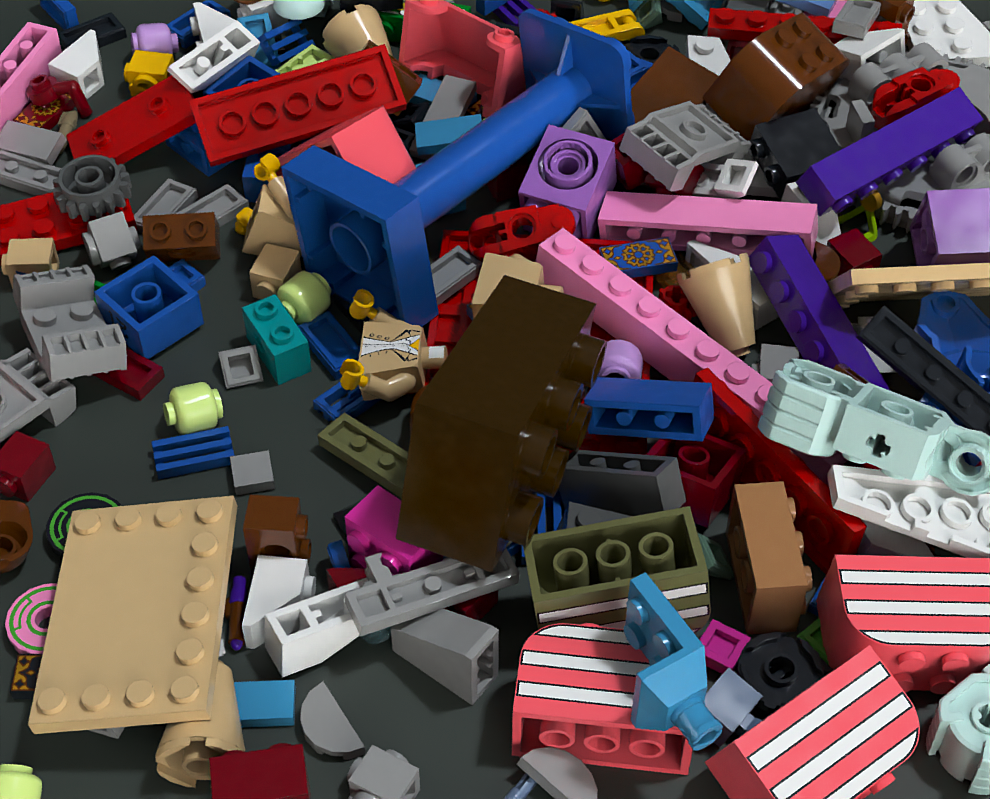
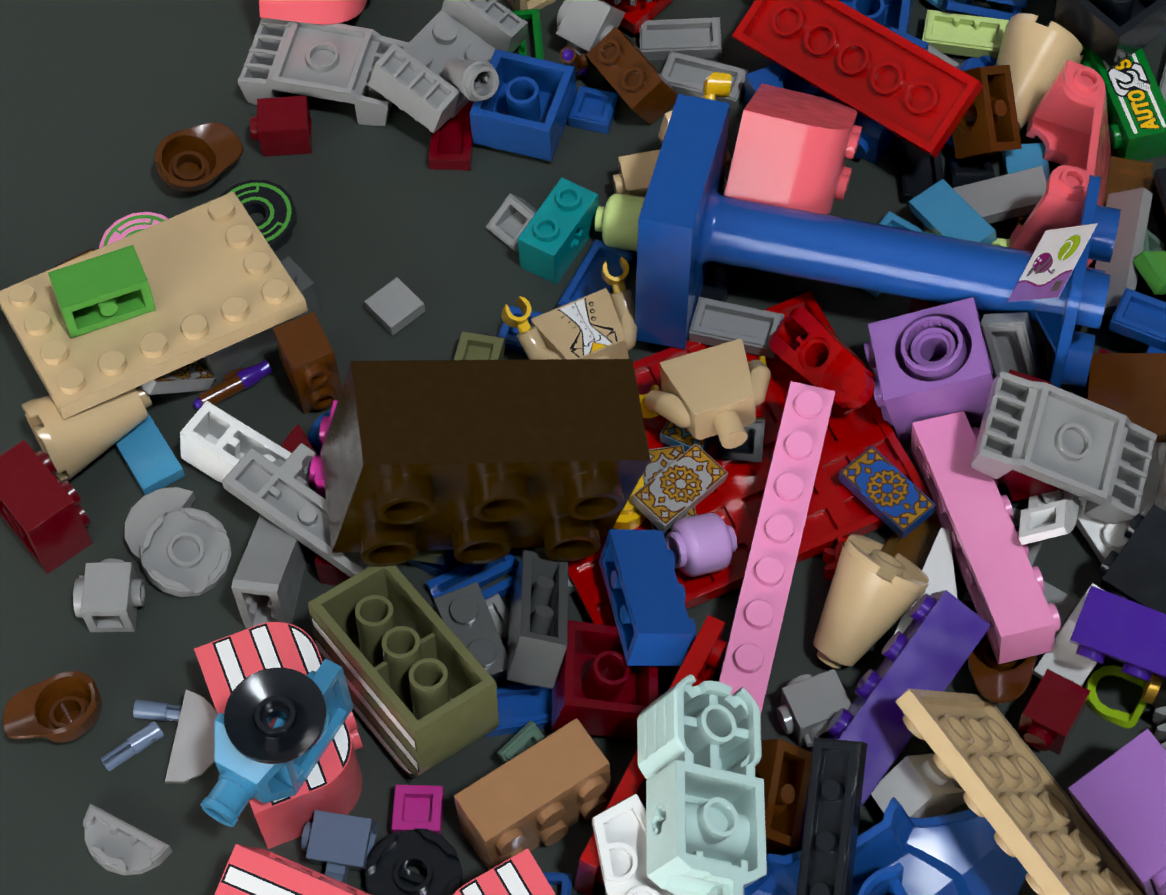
camera: 65 degrees right, 10 degrees up
(112, 627) = (102, 291): none -> bright green brick
(116, 307) = (472, 77): none -> light grey cone
(143, 252) = (572, 58): none -> reddish brown piece
(192, 447) = (380, 218): blue tile -> none
(193, 408) = (430, 214): yellowish green head -> none
(274, 585) = (259, 400): white slope -> none
(377, 711) = (185, 552): none -> light grey tile
(574, 58) = (1052, 263): none -> sticker
(680, 608) = (273, 695): none -> black dish

